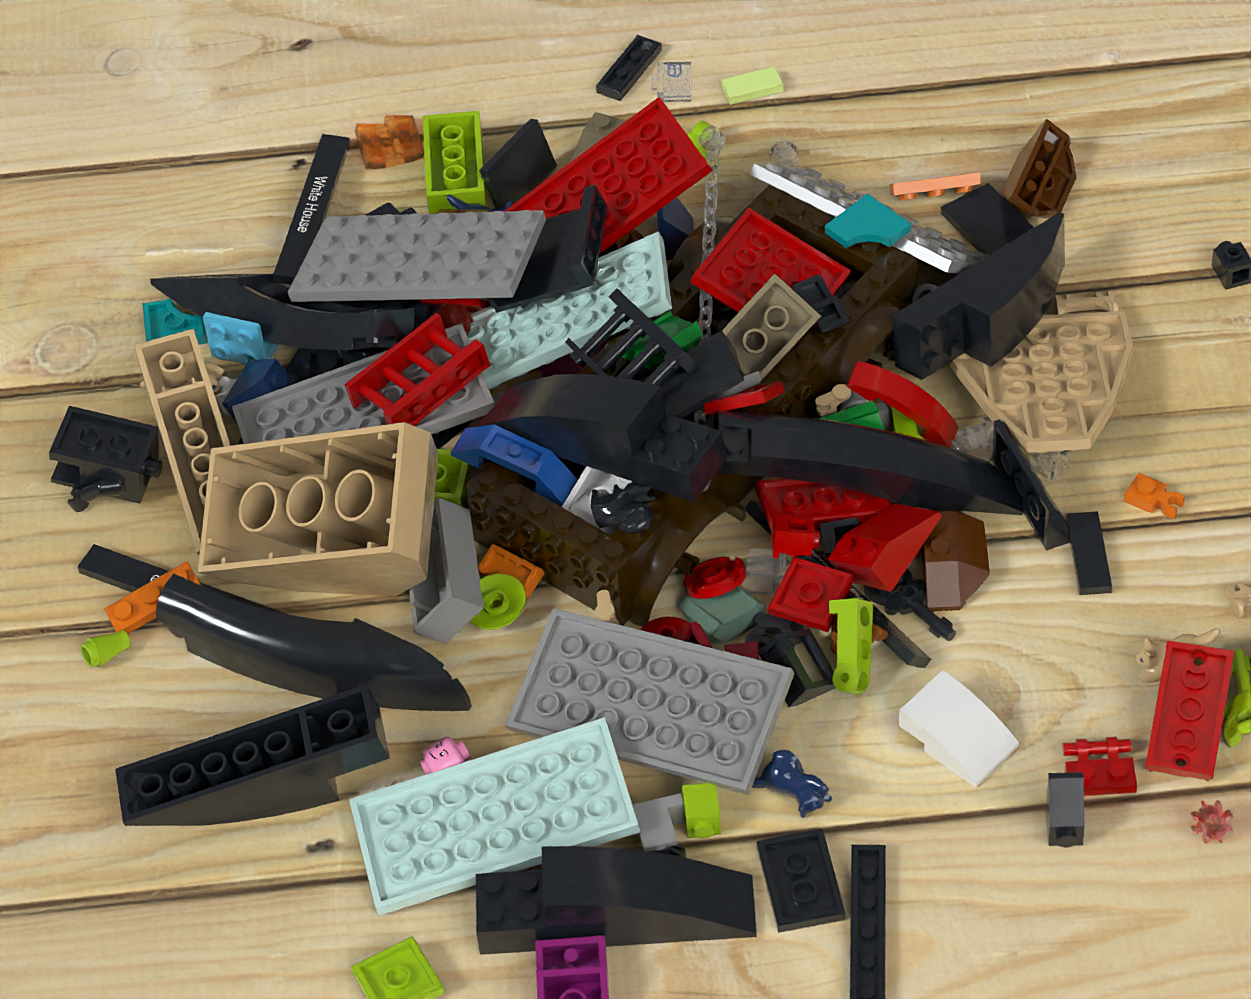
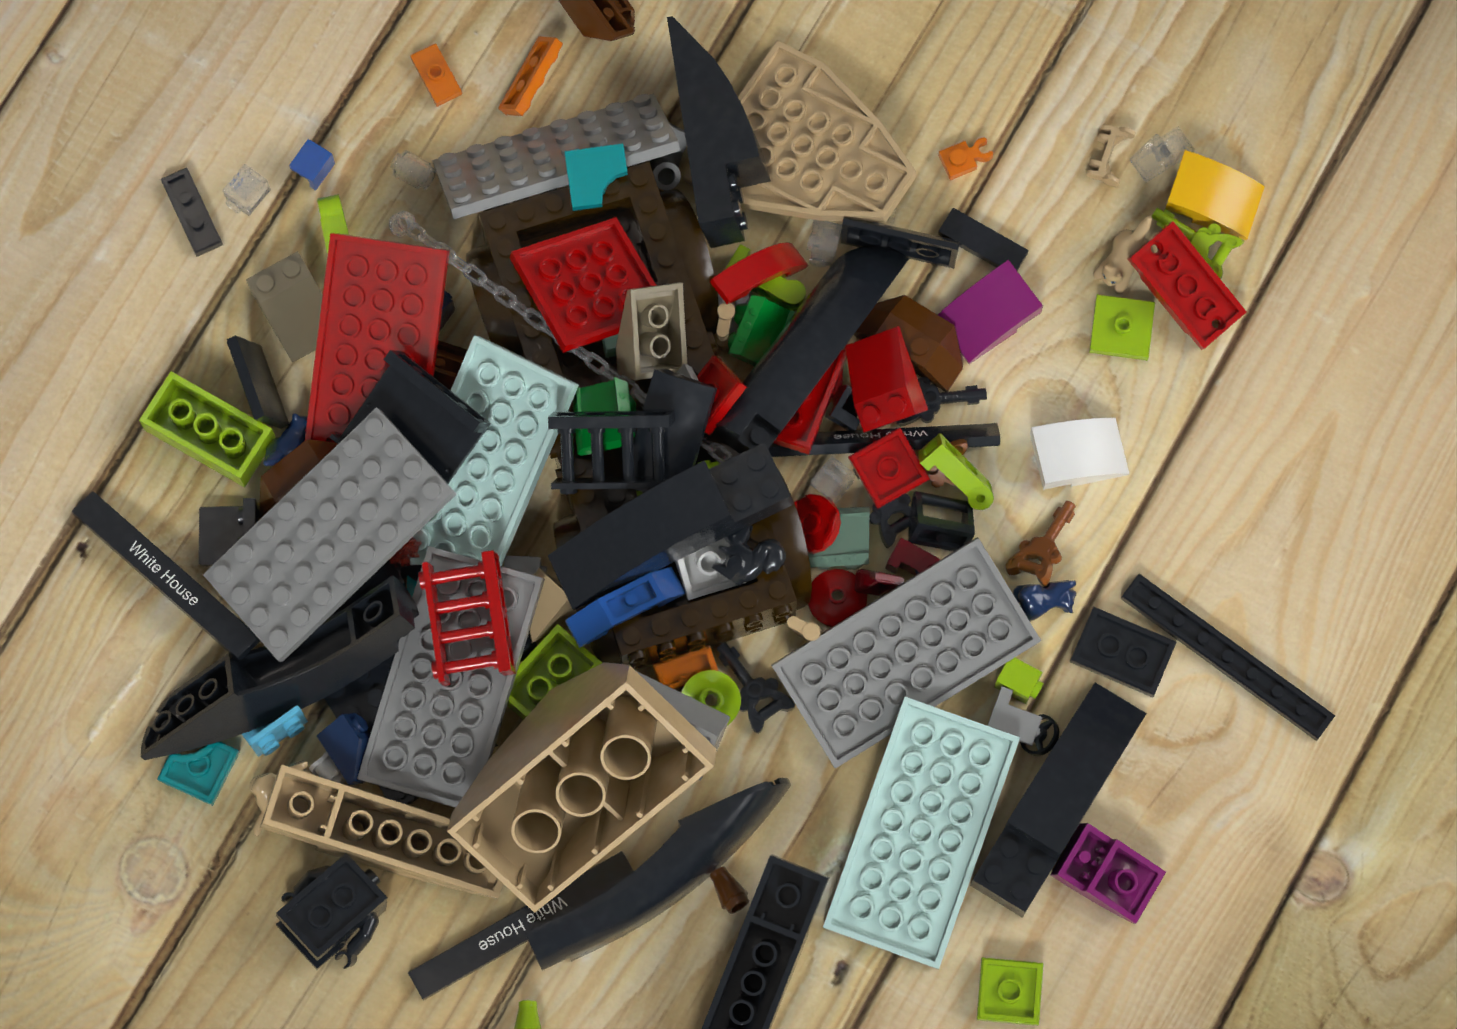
camera: 60 degrees left, 25 degrees up
(141, 604) = (508, 959): orange plate -> none
(389, 143) = (122, 461): clear orange slope -> none
(444, 755) = (837, 833): bright pink head -> none
(529, 630) = (755, 690): none -> black piece
(731, 105) = (313, 163): none -> blue panel
(752, 85) = (295, 129): yellowish green tile -> none
(793, 535) = (833, 444): red brick -> none
(818, 296) = (649, 269): black slope -> none
(834, 756) = (1042, 548): none -> dark orange piece
(880, 135) = (436, 75): none -> orange plate
(985, 219) = (602, 66): black tile -> none
(1028, 590) = (991, 311): none -> magenta slope
(1065, 809) = (1209, 434): black slope -> none
(1098, 302) = (755, 45): tan piece -> none
(1103, 775) = (1184, 385): red plate -> none
(1109, 697) = (1122, 327): none -> lime plate
(1208, 813) = (1283, 342): clear red gear -> none

